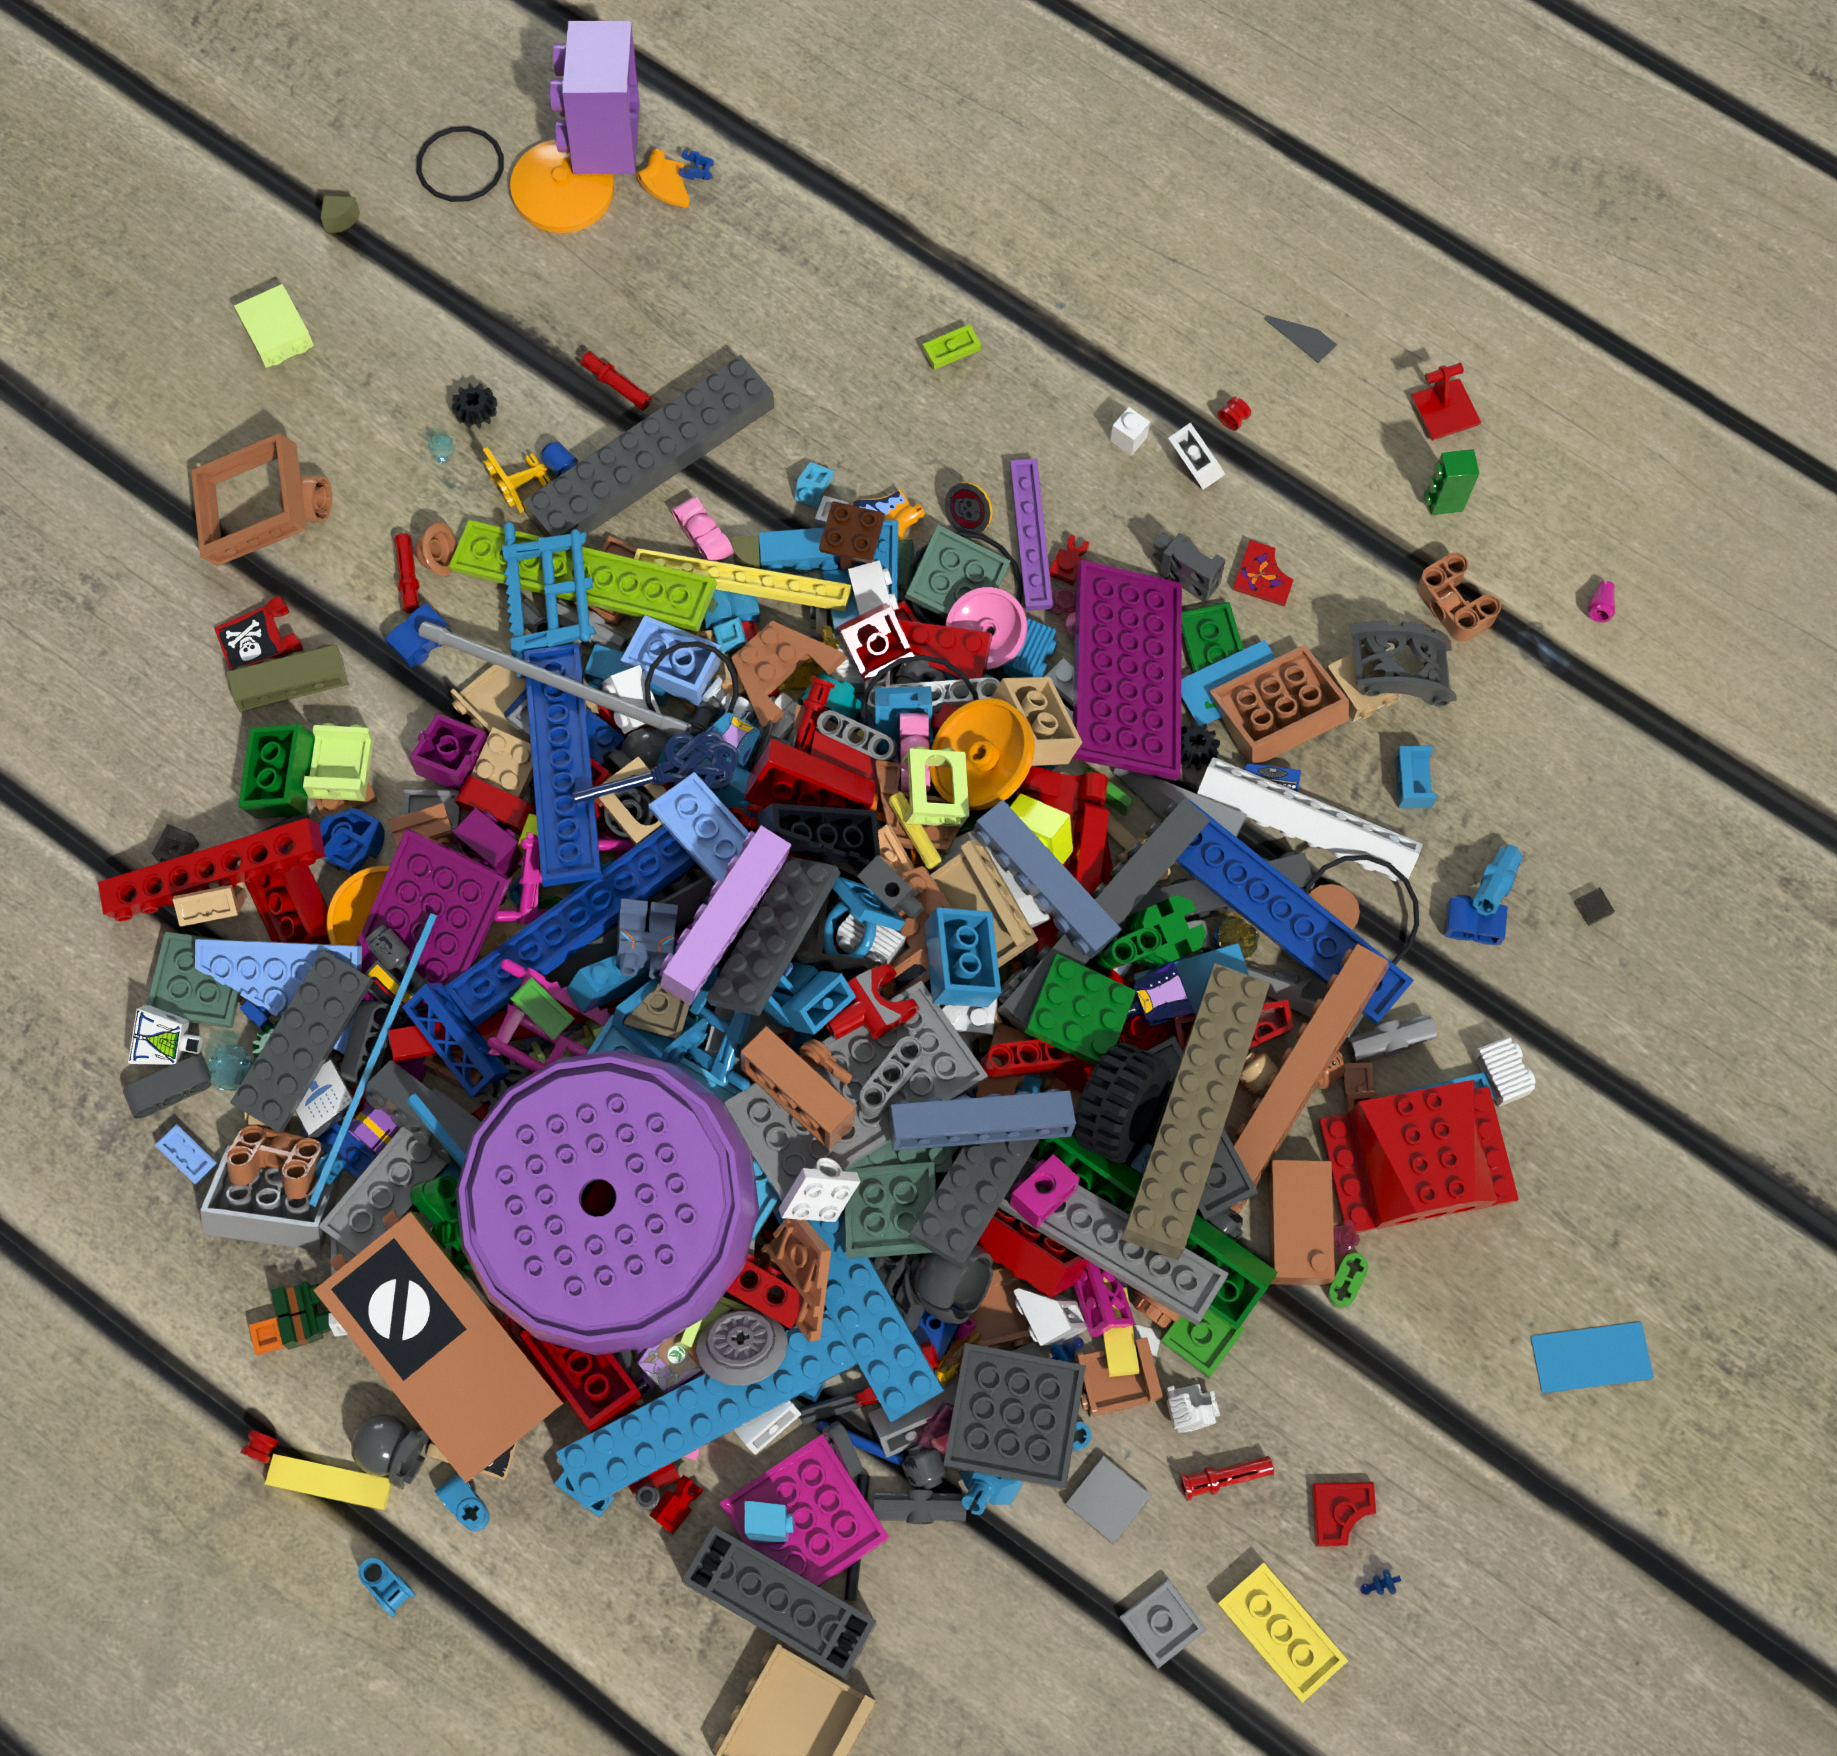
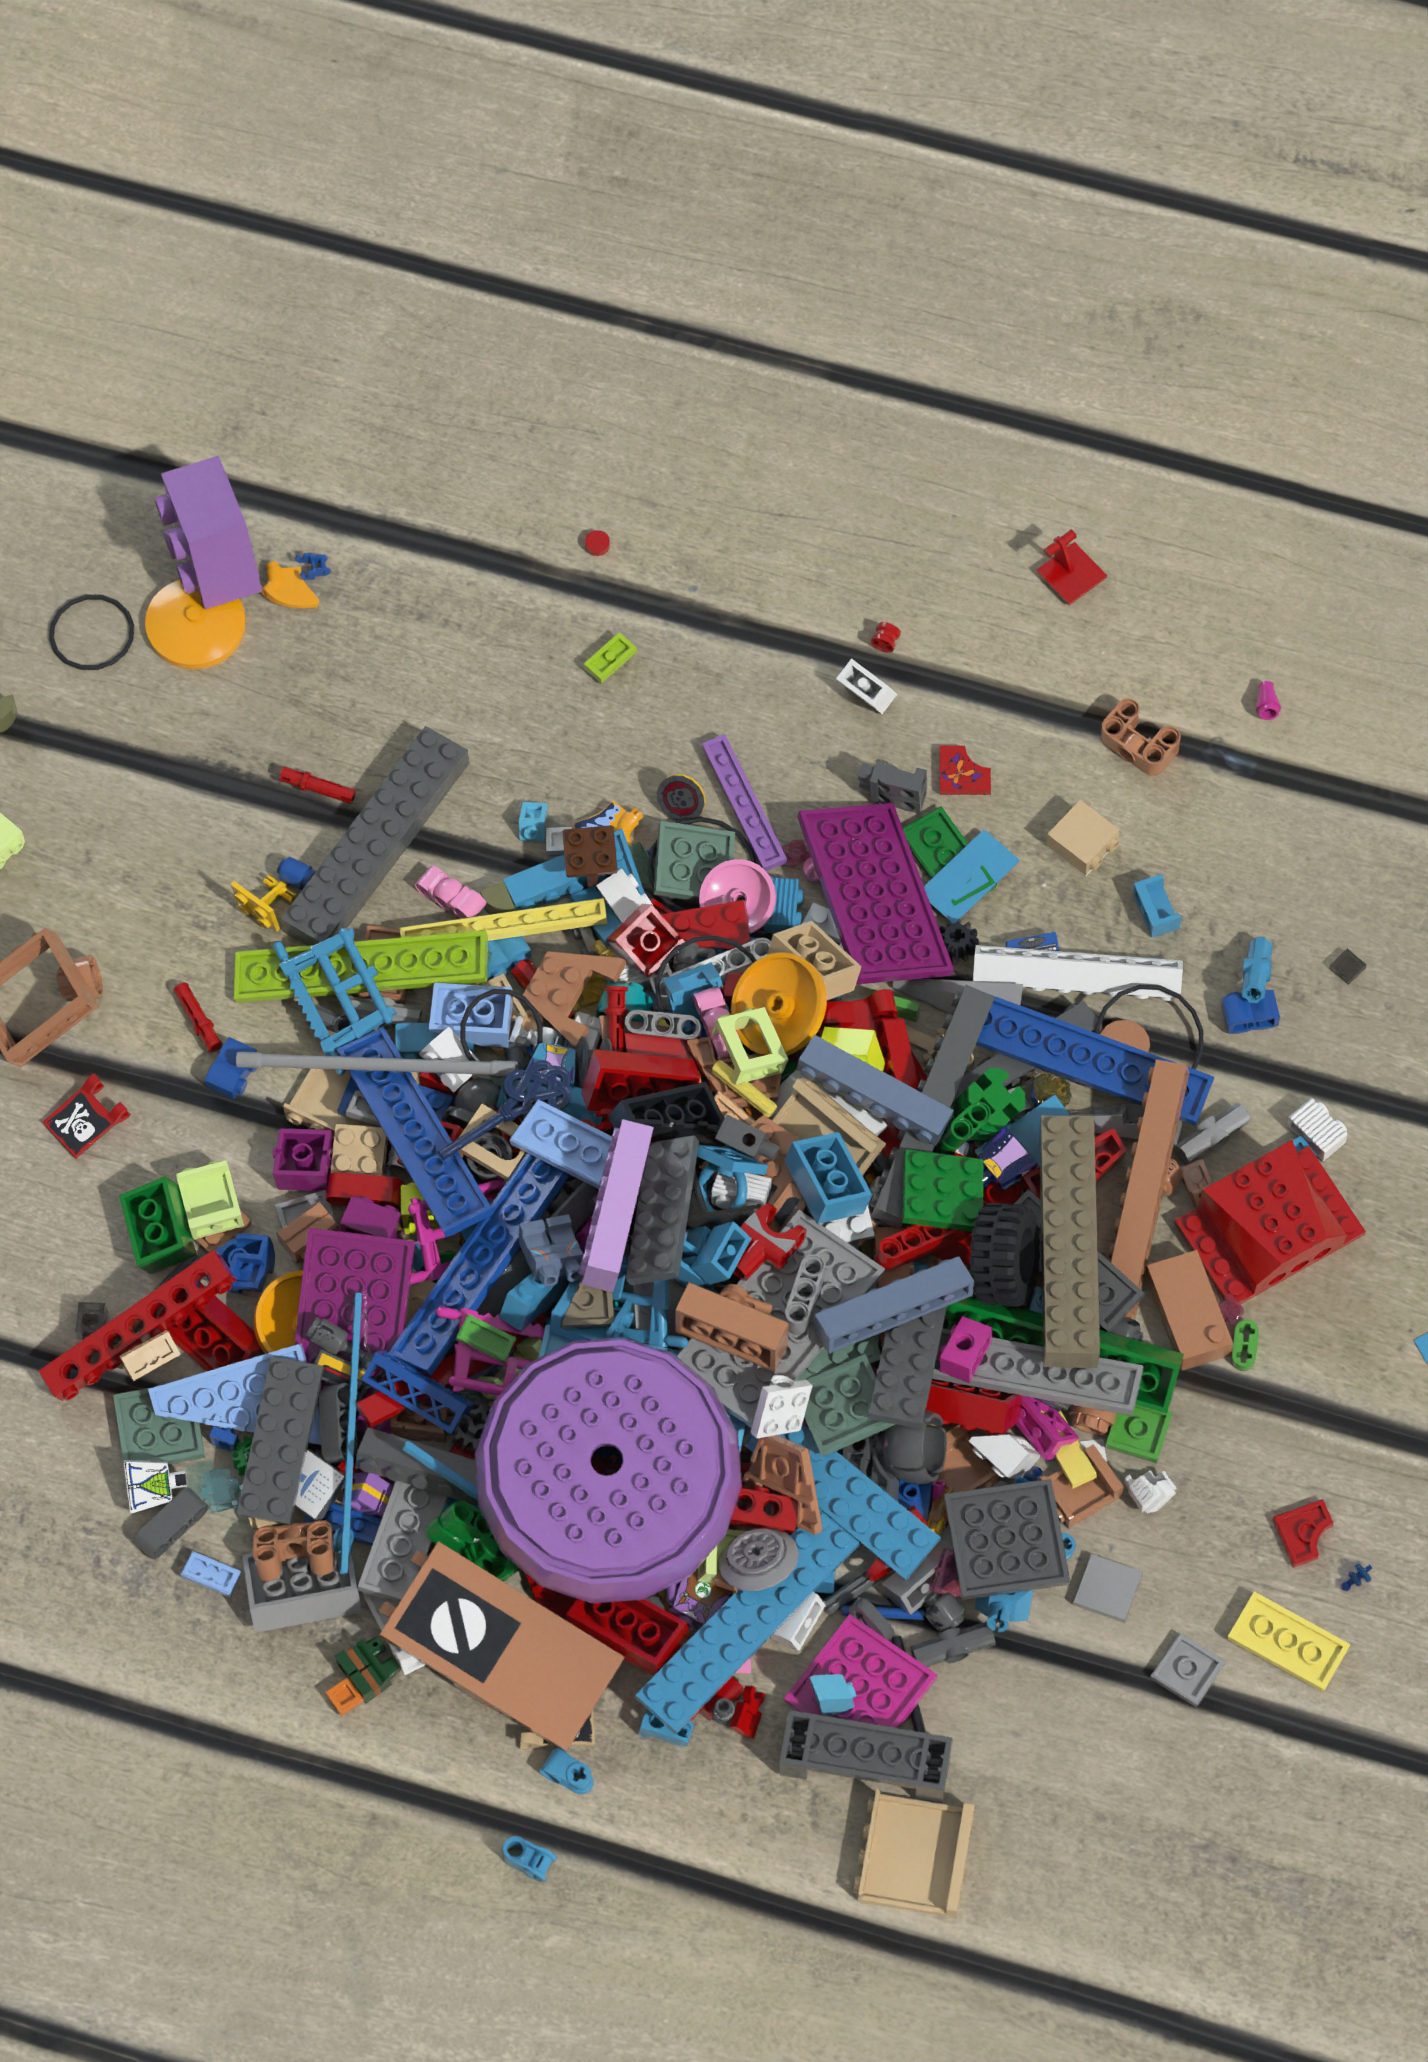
camera: 15 degrees left, 5 degrees down
(259, 1446) = (375, 1786): red wheel -> none
(287, 677) = (129, 1143): olive brick -> none
(328, 1482) = (445, 1796): light yellow tile -> none
(388, 1448) = (486, 1747): dark grey tile -> none
(437, 548) = (217, 987): nougat hat -> none
(441, 447) = (183, 895): clear light blue plate -> none
(474, 405) = (198, 840): black gear -> none
(730, 635) = (513, 976): medium azure tile -> none
(982, 231) = (597, 543): none -> red tile
(1065, 563) = (785, 818): red plate -> none
(1130, 431) = (799, 683): white brick -> none
(1212, 1480) = (1188, 1545): red pin -> none
(1257, 1072) = (1108, 1199): tan head -> none
(1280, 705) = (1018, 881): nougat slope -> none
(1306, 338) = (926, 548): dark grey sticker -> none
(1429, 647) = (1129, 789): dark grey fence -> none
(1452, 482) = (1100, 638): green brick -> none

